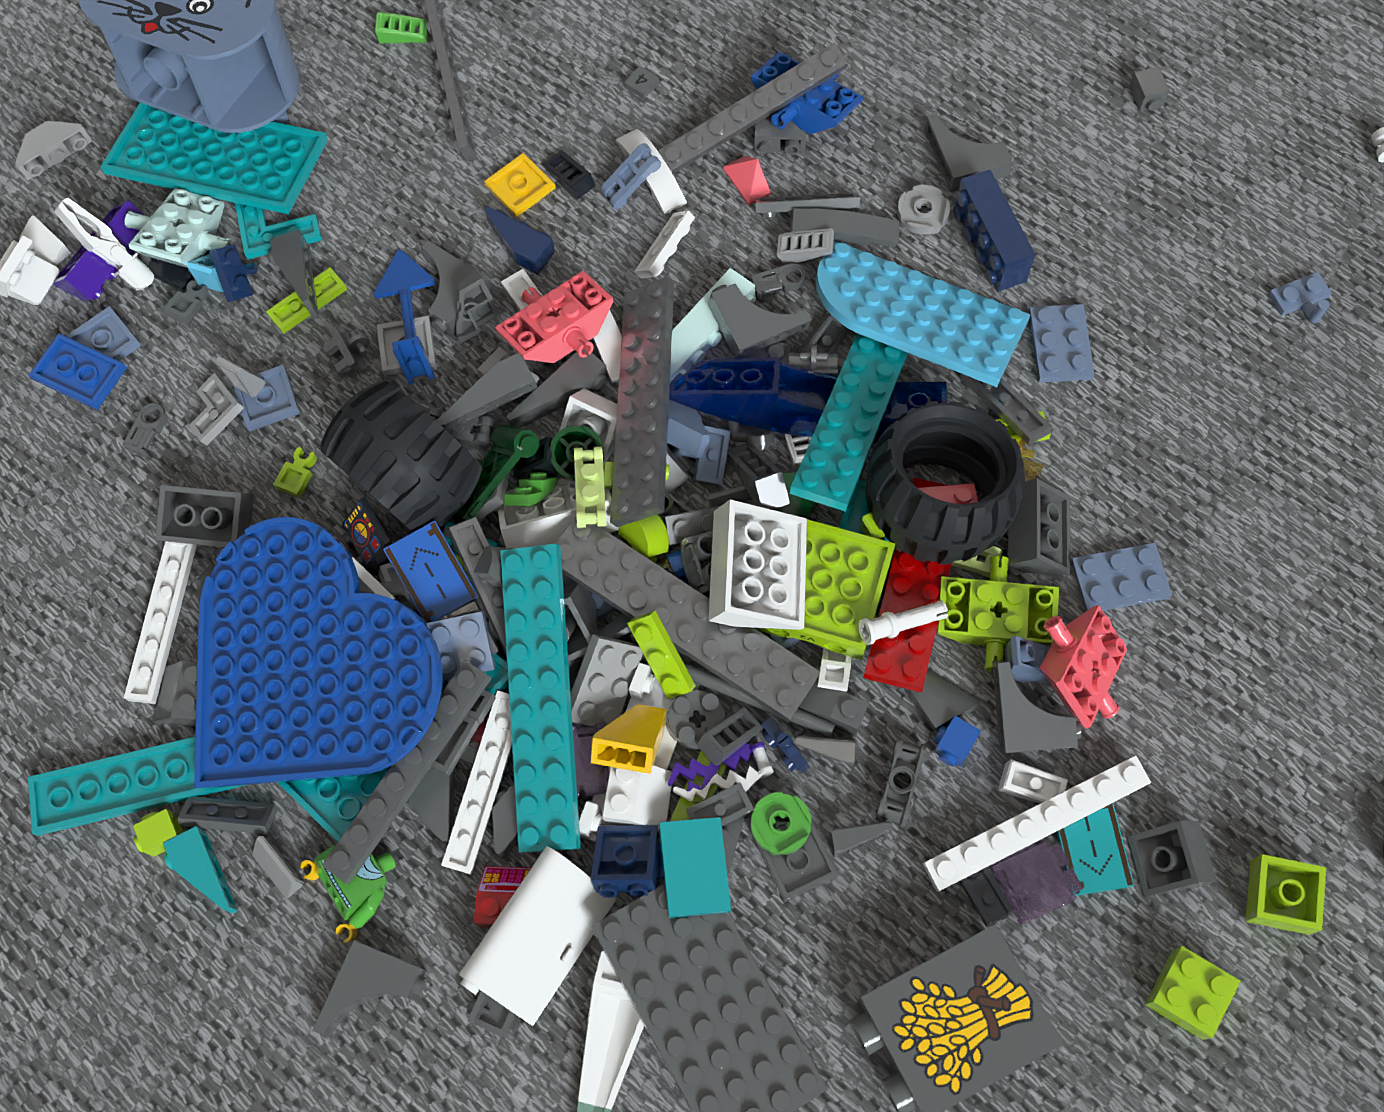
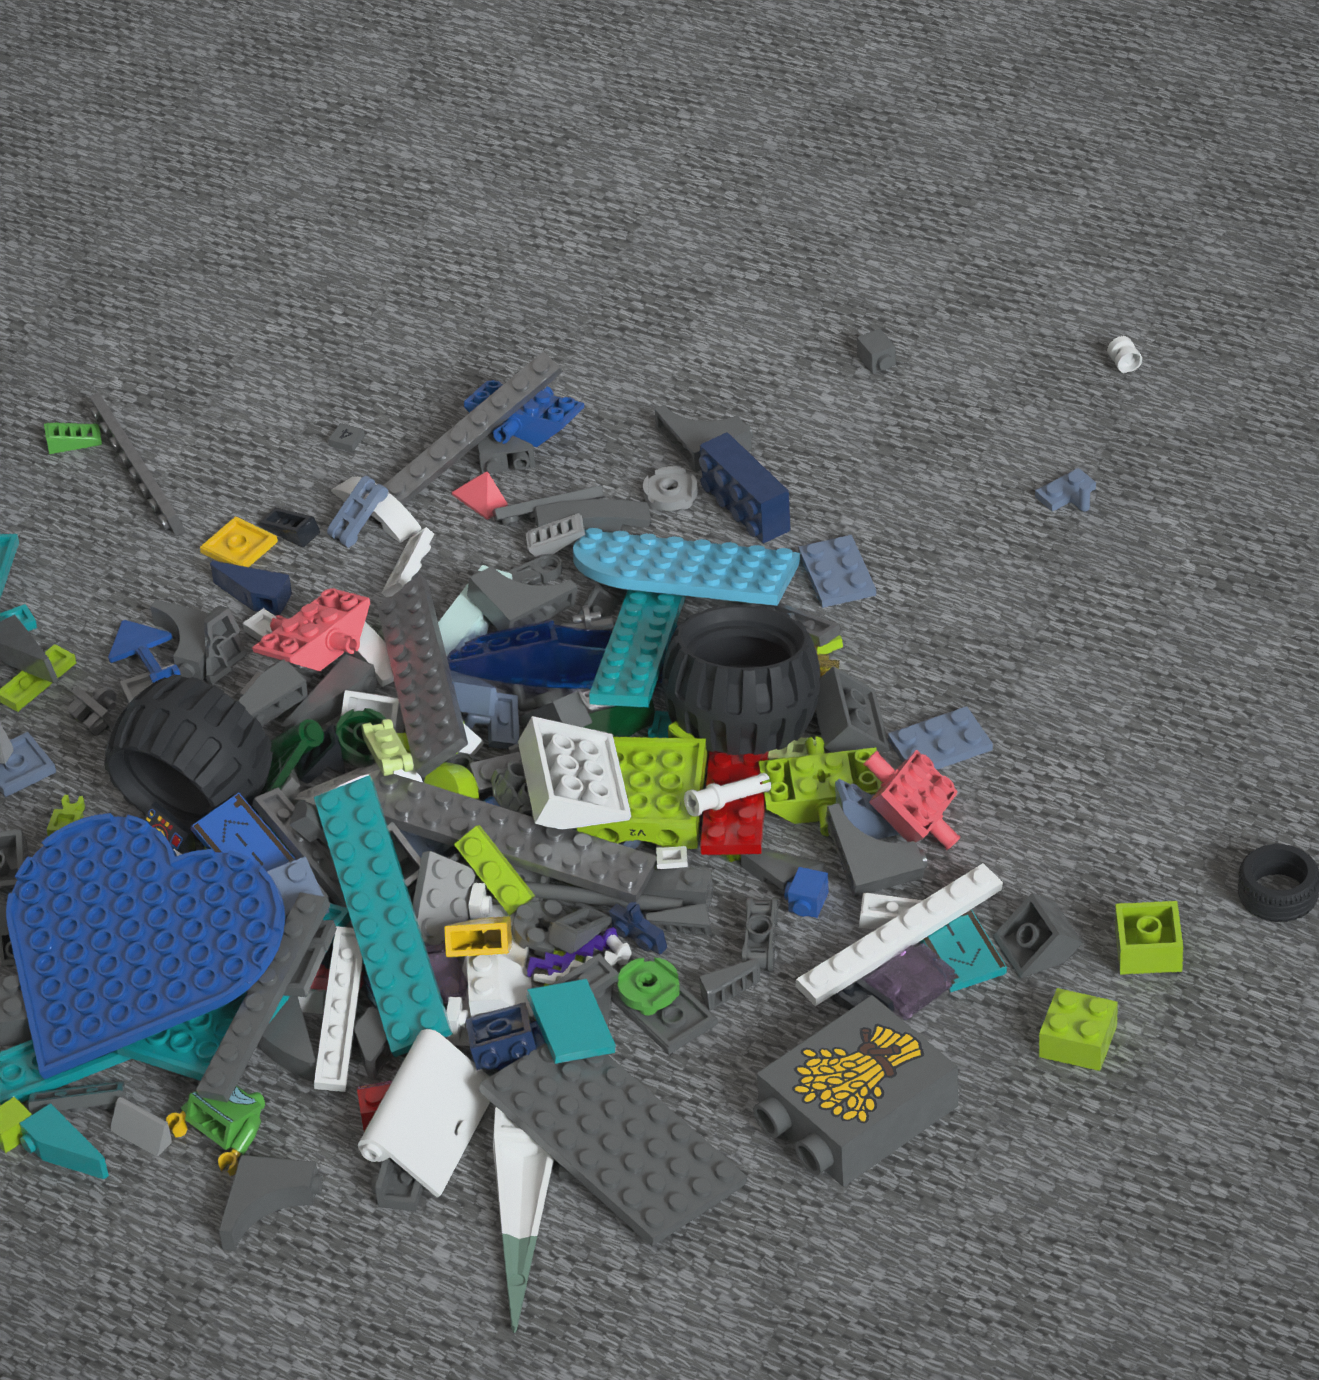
camera: 15 degrees left, 25 degrees down
(531, 490) = (325, 773): bright green slope -> none

